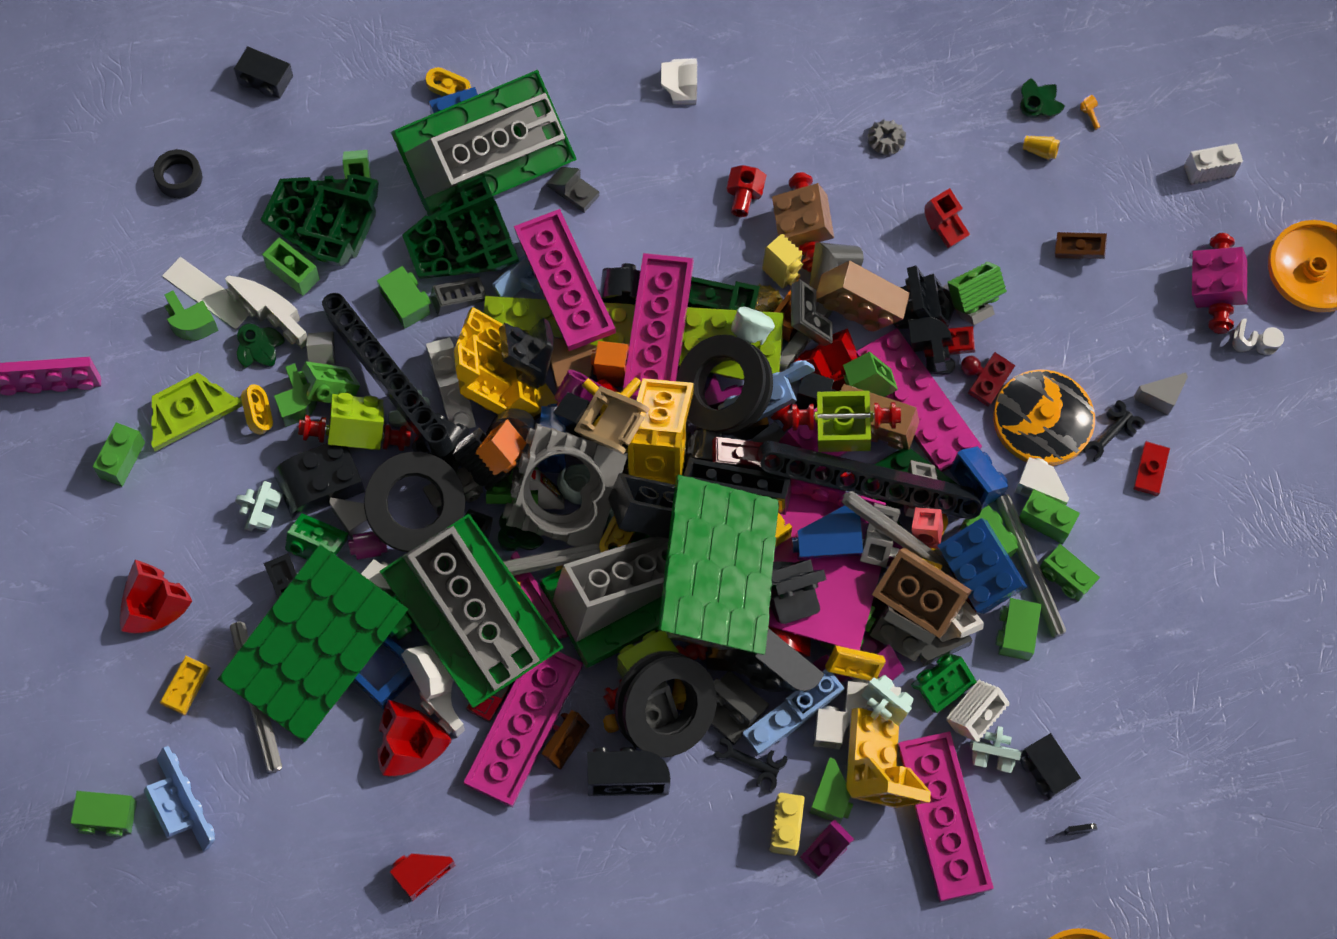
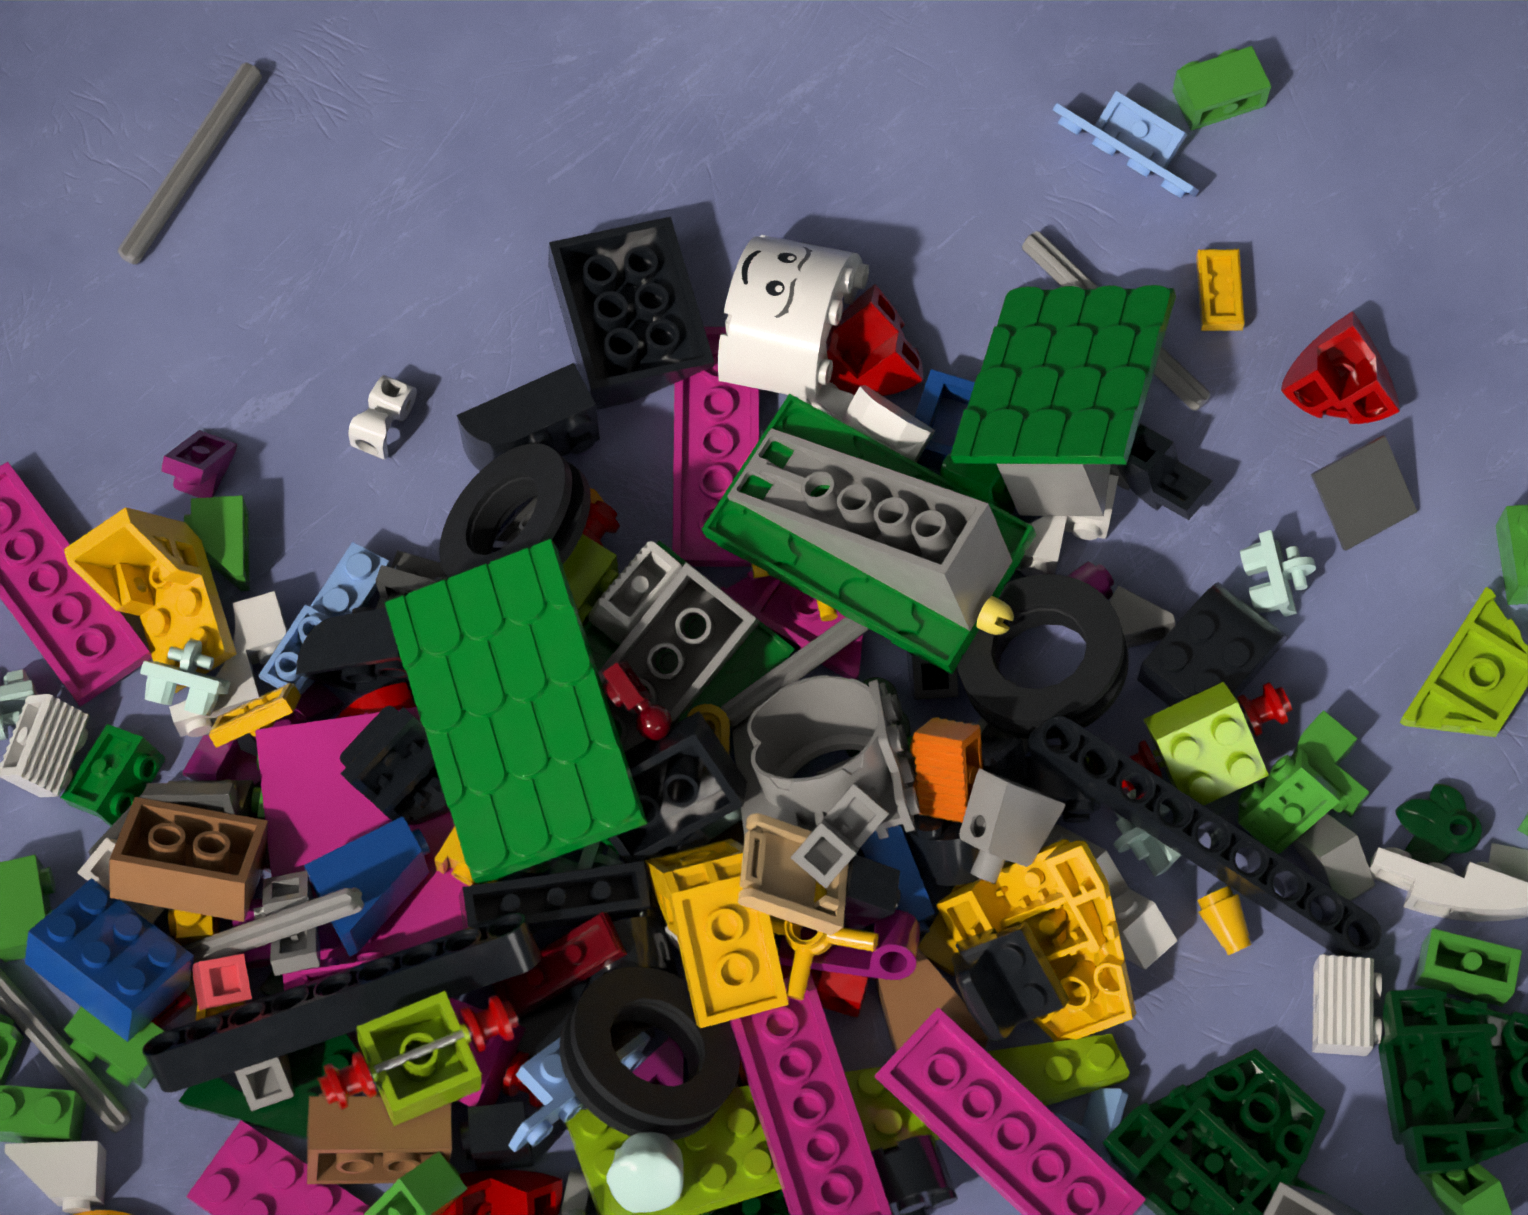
camera: 160 degrees right, 0 degrees up
(183, 527) = (1364, 492): none -> dark grey piece
(256, 409) = (1372, 721): yellow plate -> none
(309, 533) = (1163, 566): green bracket -> none
(360, 280) = (1345, 1005): none -> white brick
(395, 345) = (1225, 919): none -> yellow cone
(404, 297) = (1259, 1010): bright green brick -> none
(420, 872) = (757, 194): red slope -> none
(429, 527) = (993, 616): none -> light yellow hinge
(441, 772) = (782, 313): none -> white cylinder
(450, 305) = (1189, 1025): dark grey slope -> none
(484, 410) = (1006, 823): none -> light grey torso
(535, 823) = (629, 310): none -> black slope
(565, 739) = (642, 458): reddish brown plate -> none
(586, 421) = (840, 835): none -> light grey slope
(610, 362) = (862, 1032): orange brick -> none
(619, 625) = (633, 592): none -> white brick
(652, 550) = (627, 689): none -> dark red plate
(700, 835) = (387, 402): none -> white leg
(769, 770) = (331, 538): black bar -> none
(787, 824) = (271, 467): light yellow brick -> none
(975, 470) = (168, 1129): blue slope -> none

